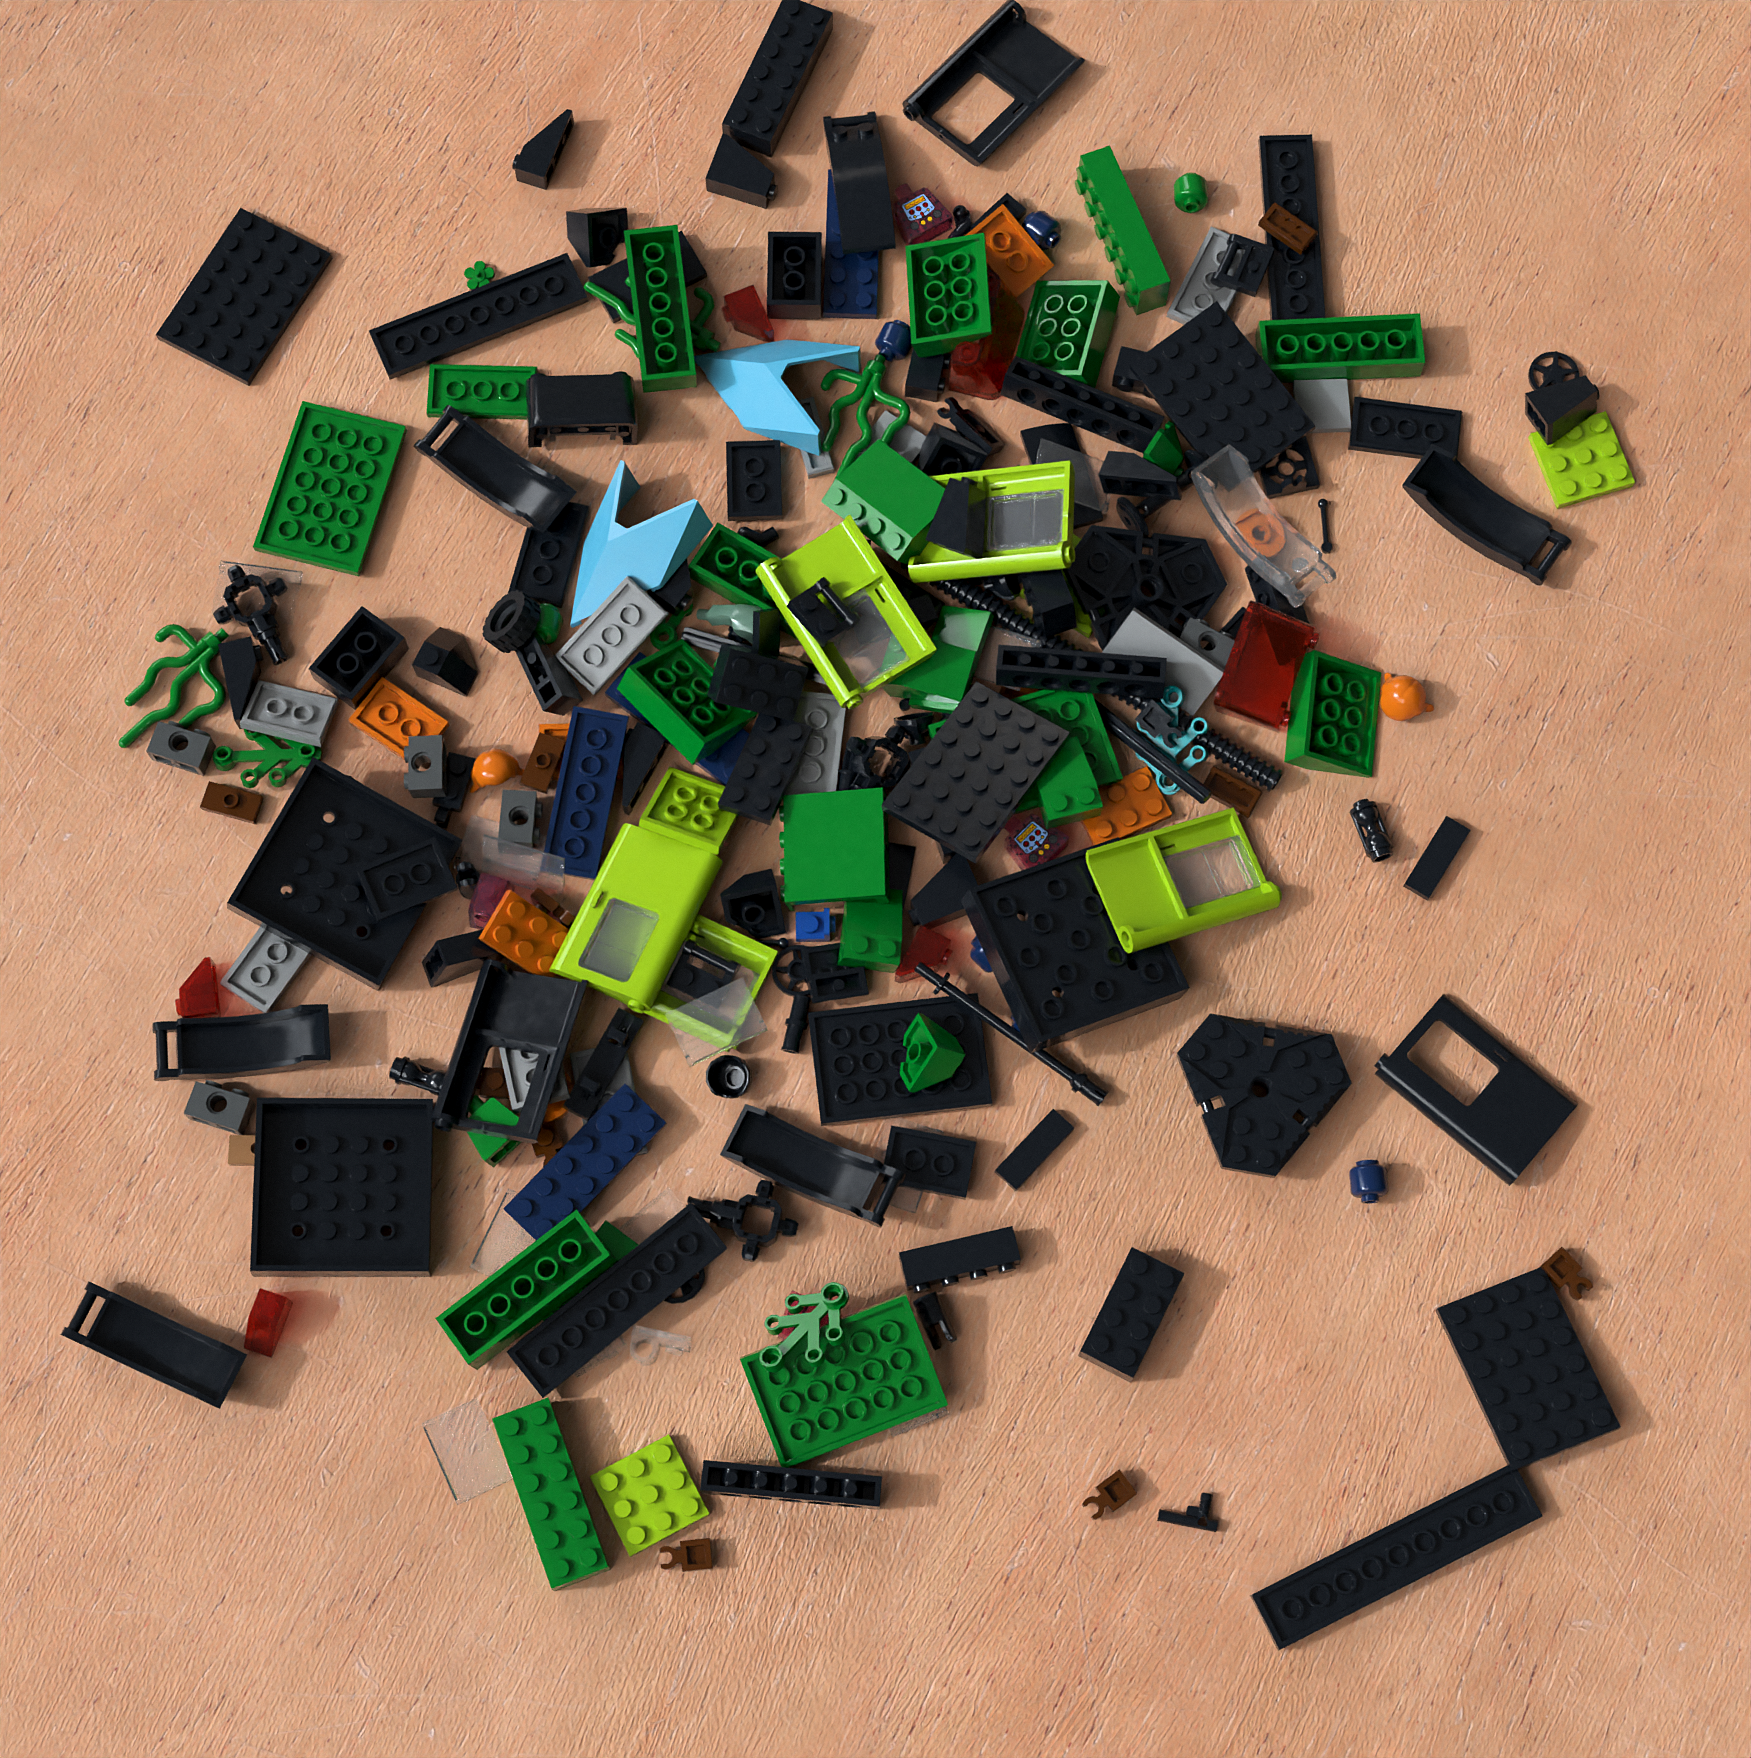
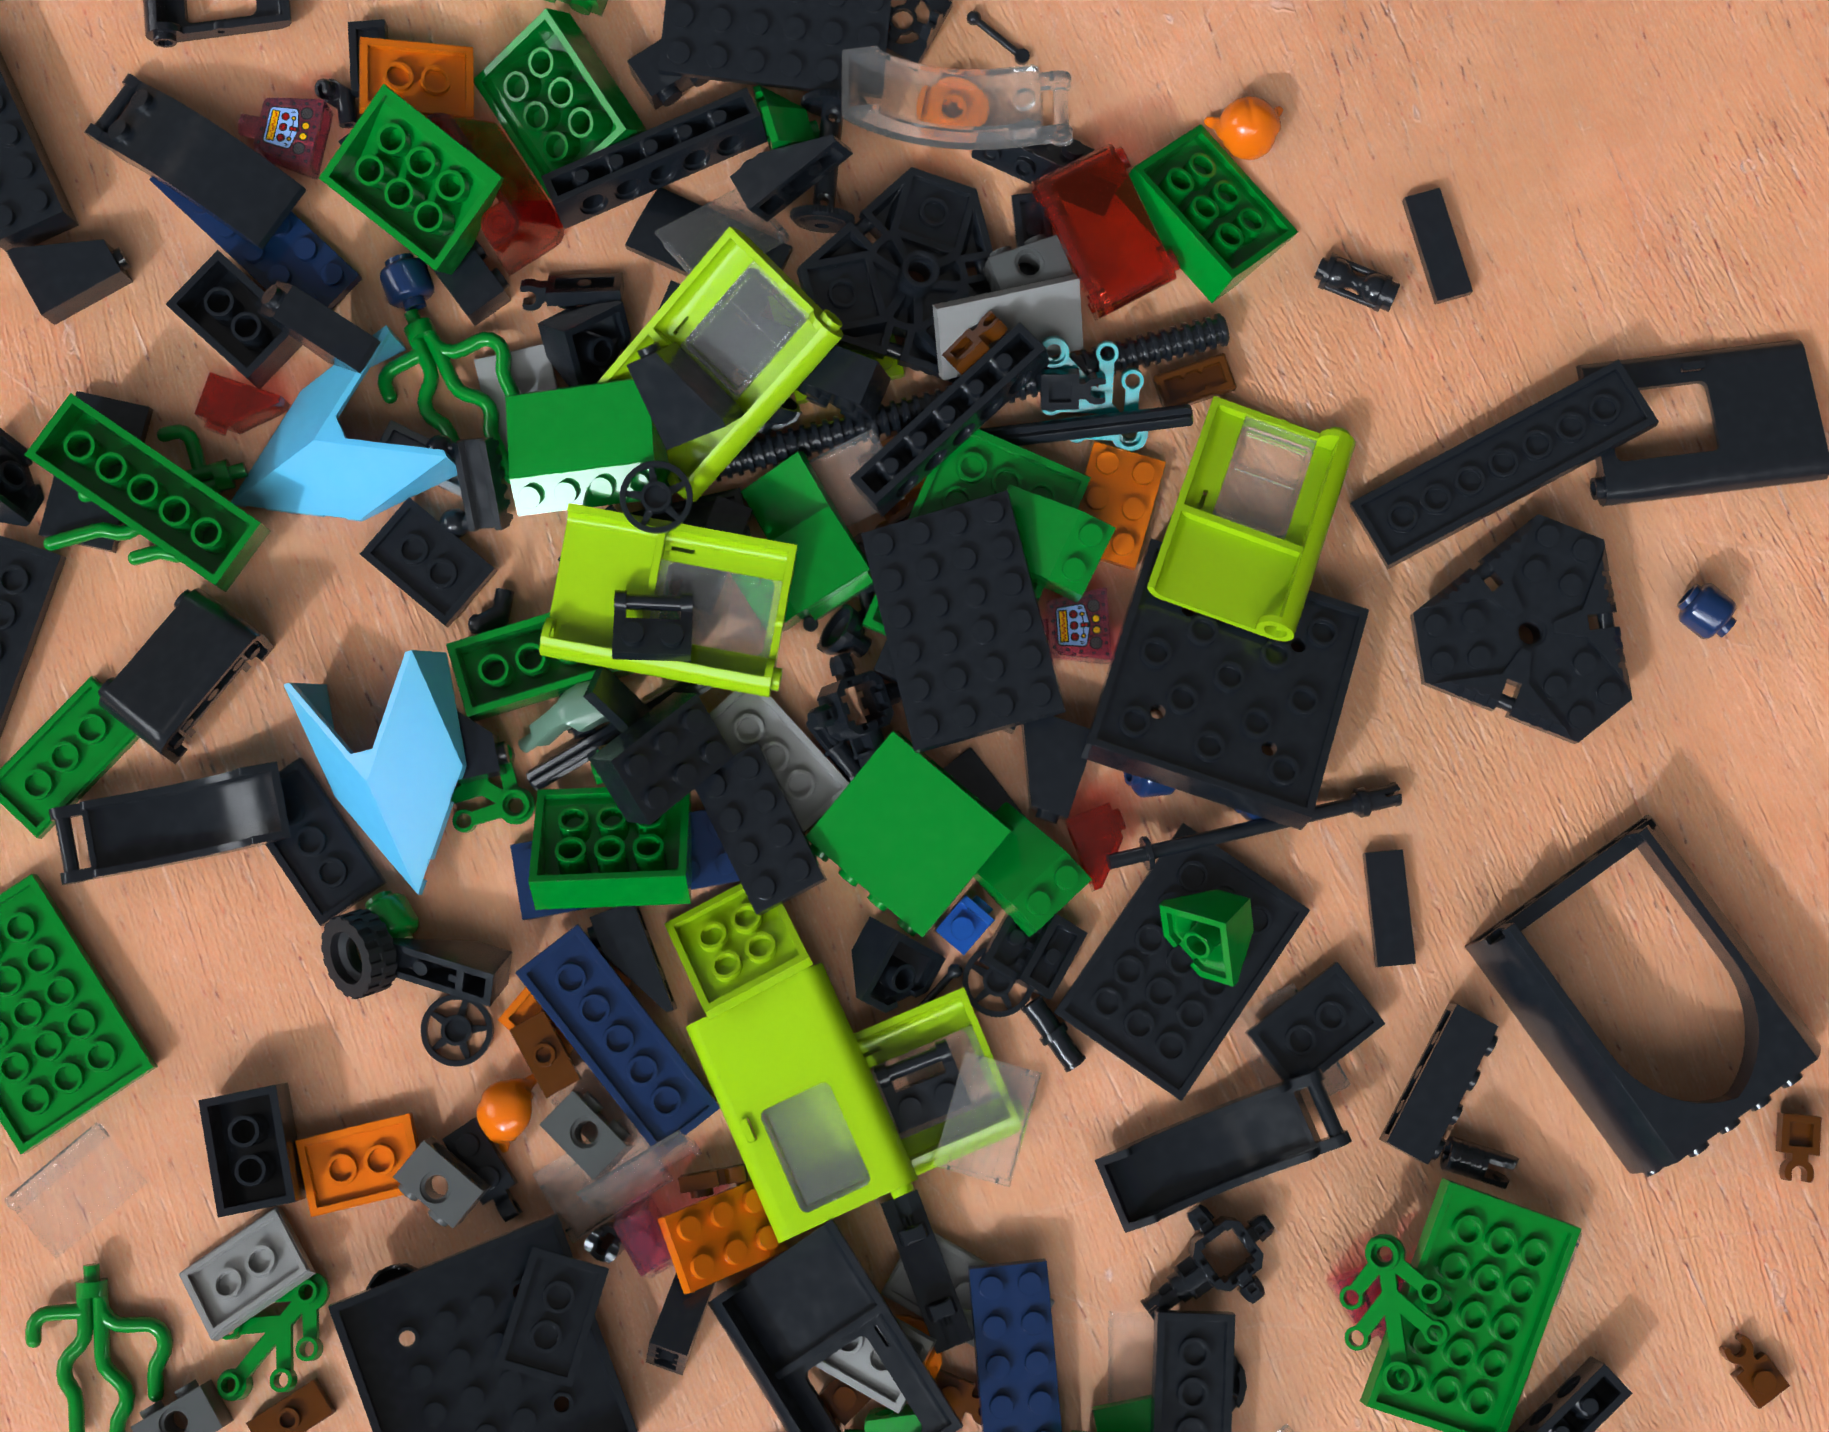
camera: 50 degrees left, 10 degrees up
(241, 671) = (154, 1287): black slope -> none
(261, 622) = (117, 1218): black piece -> none
(446, 662) = (338, 1054): black slope -> none
(514, 710) = (456, 1031): none -> black wheel
(611, 635) = (469, 861): light grey tile -> none
(728, 1076) = (1052, 1152): black hair -> none
(818, 468) = (479, 485): none -> black gear
(826, 313) = (317, 327): none -> black slope
(894, 554) = (656, 497): none -> black wheel
(955, 1587) = (1756, 1374): none -> reddish brown plate
(1039, 1386) = (1635, 1121): none -> black panel
(1043, 229) = (423, 22): dark blue head -> none
(1131, 1314) = (1641, 964): black brick -> none
(1135, 646) = (974, 343): none -> reddish brown plate
(1344, 994) = (1503, 464): none -> black plate

